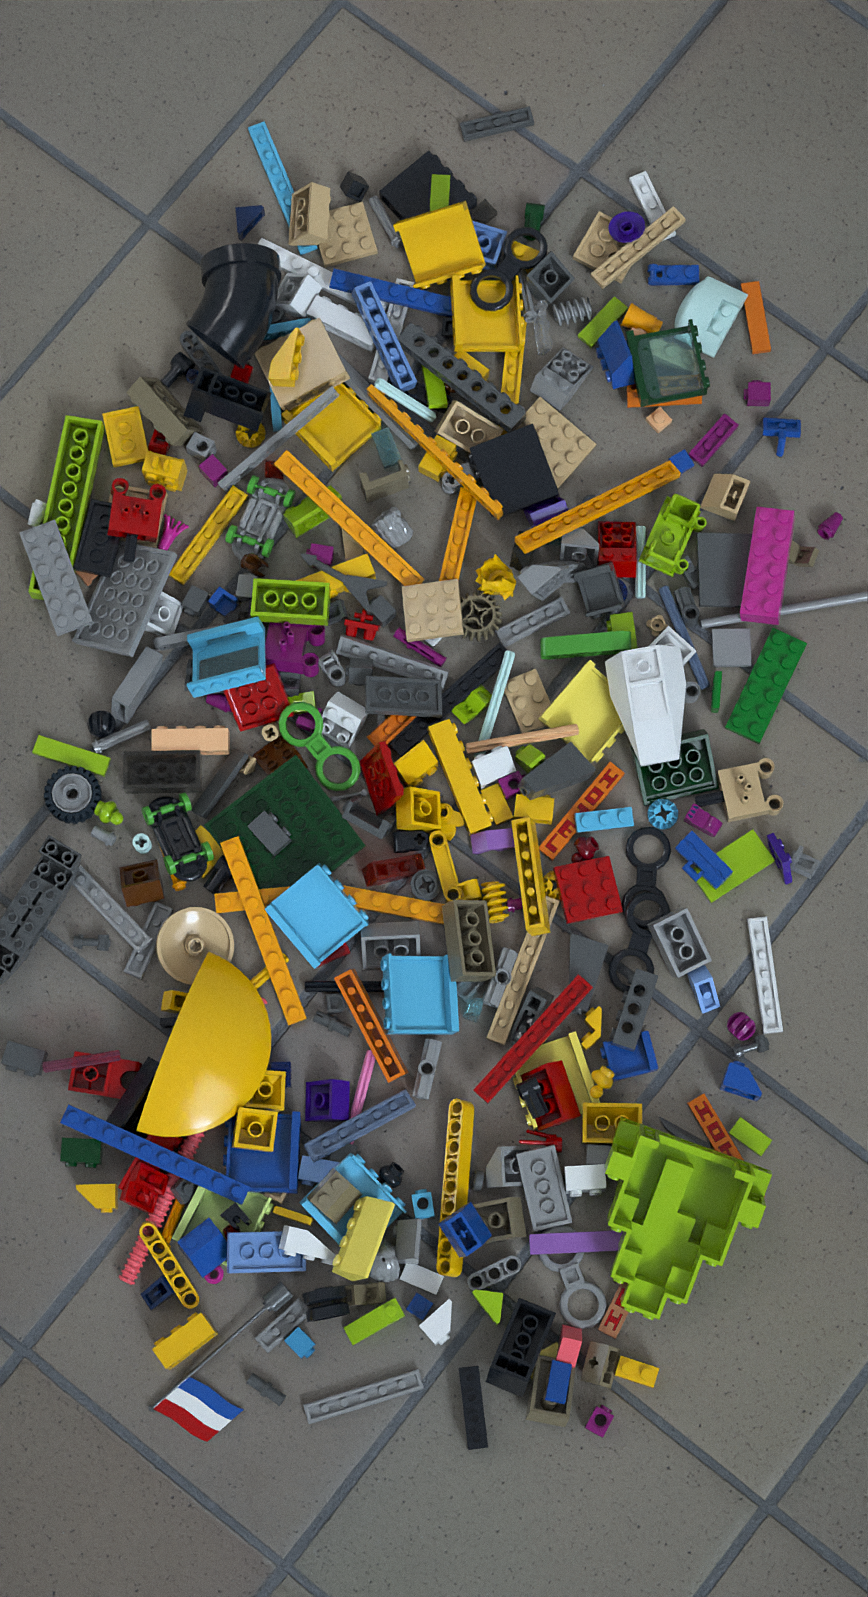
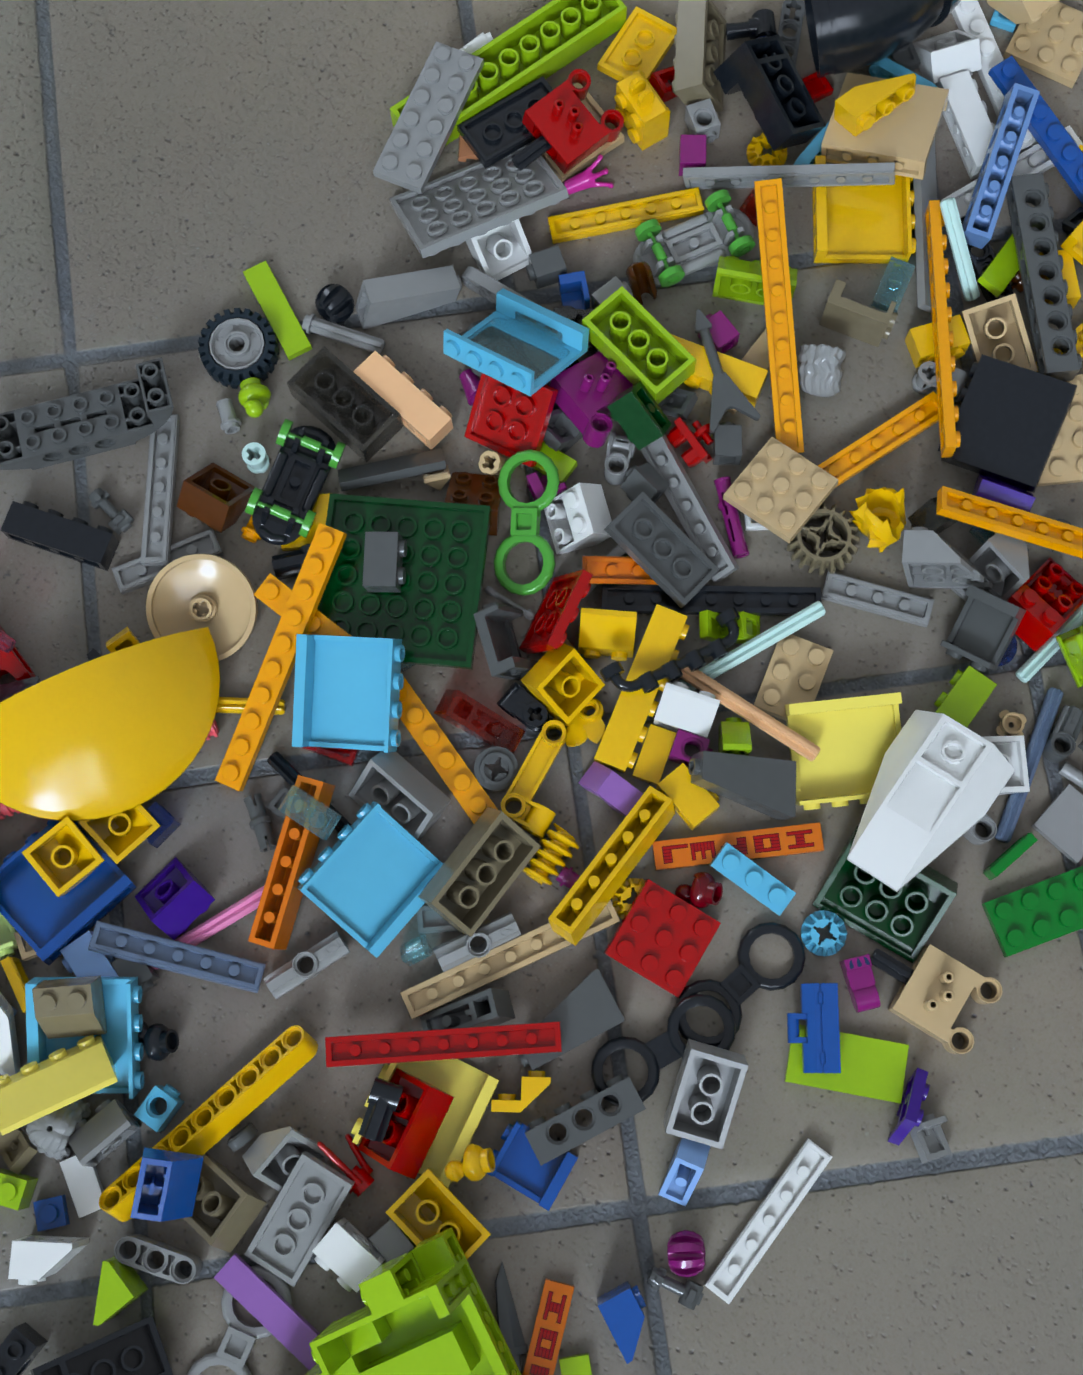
camera: 45 degrees right, 0 degrees up
(78, 979) = (60, 535): none -> black brick
(326, 638) = (639, 415): none -> dark green brick
(359, 989) = (309, 812): none -> clear light blue plate
(468, 753) = (673, 668): none -> black bar
(585, 645) = (911, 673): bright green beam -> none

